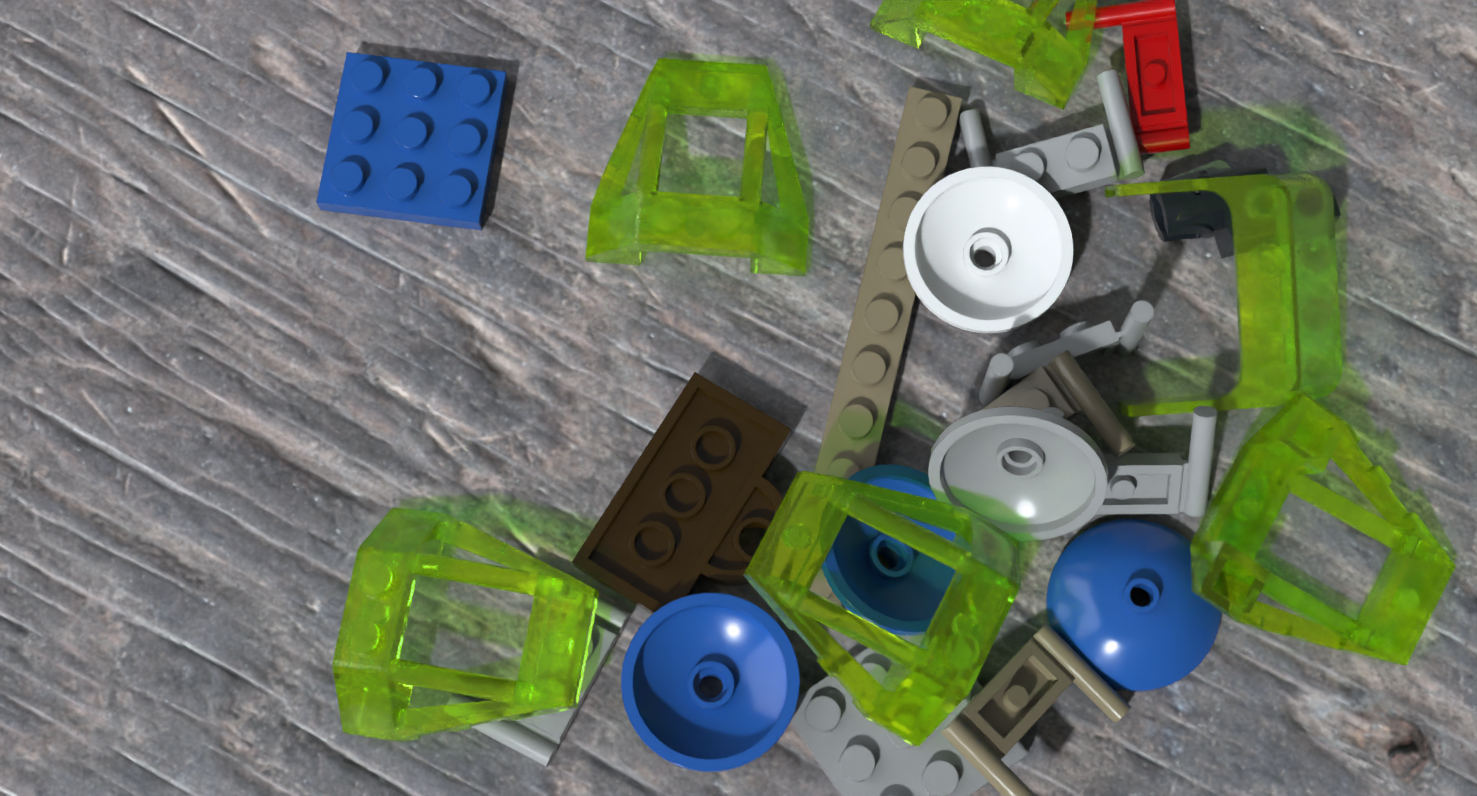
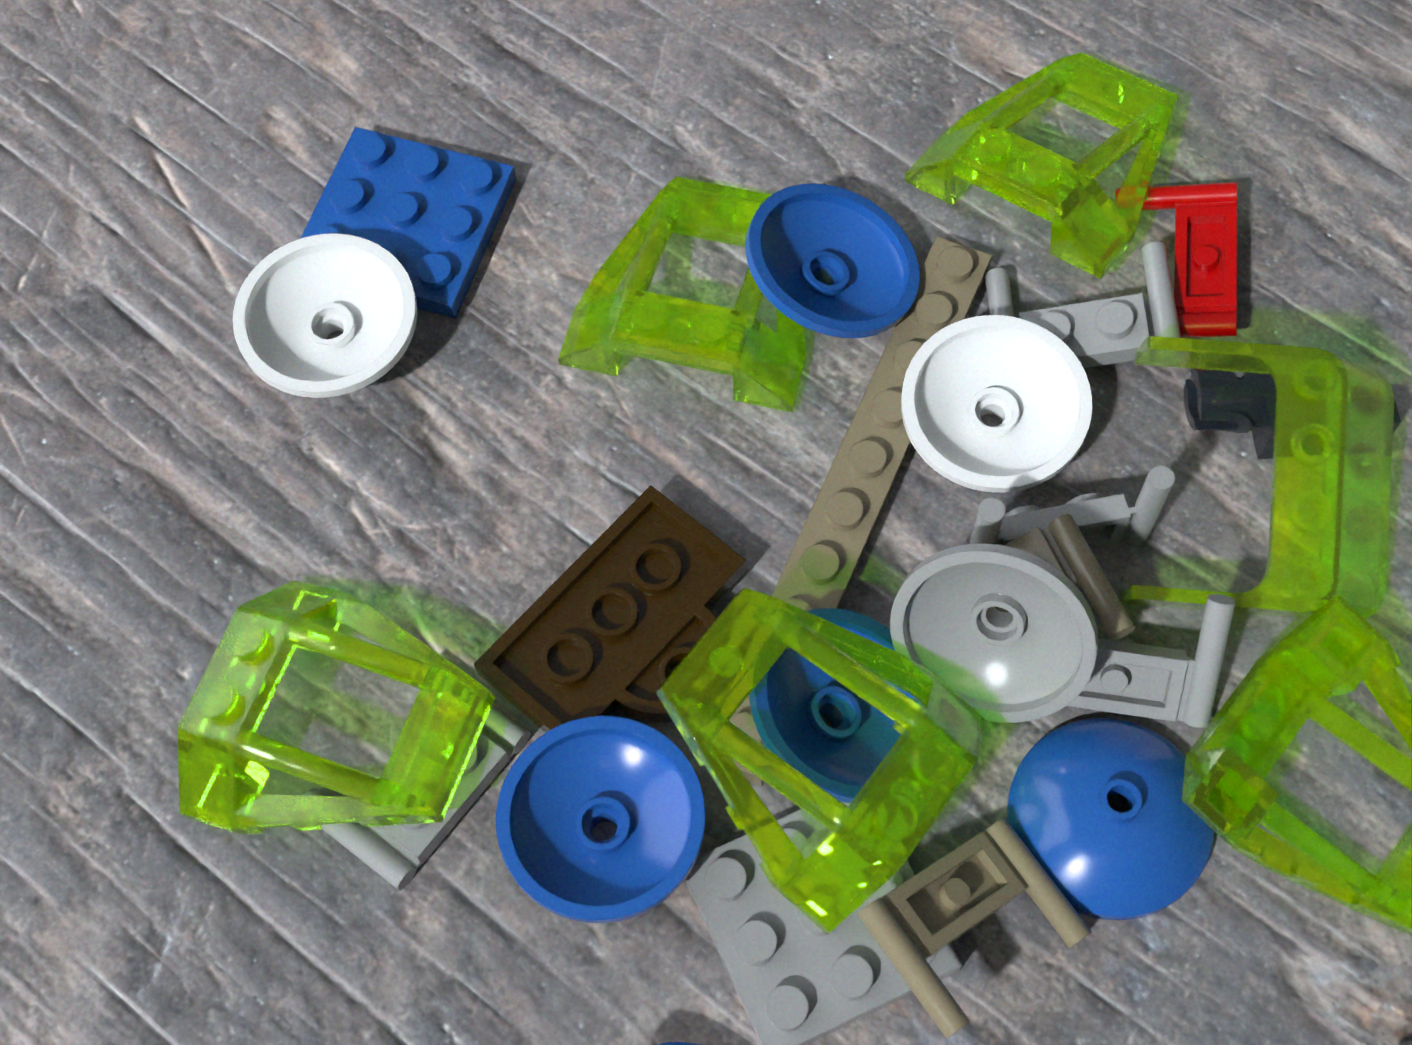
camera: 10 degrees right, 10 degrees down
(348, 228) = (319, 289): none -> white dish
(836, 114) = (832, 260): none -> blue dish

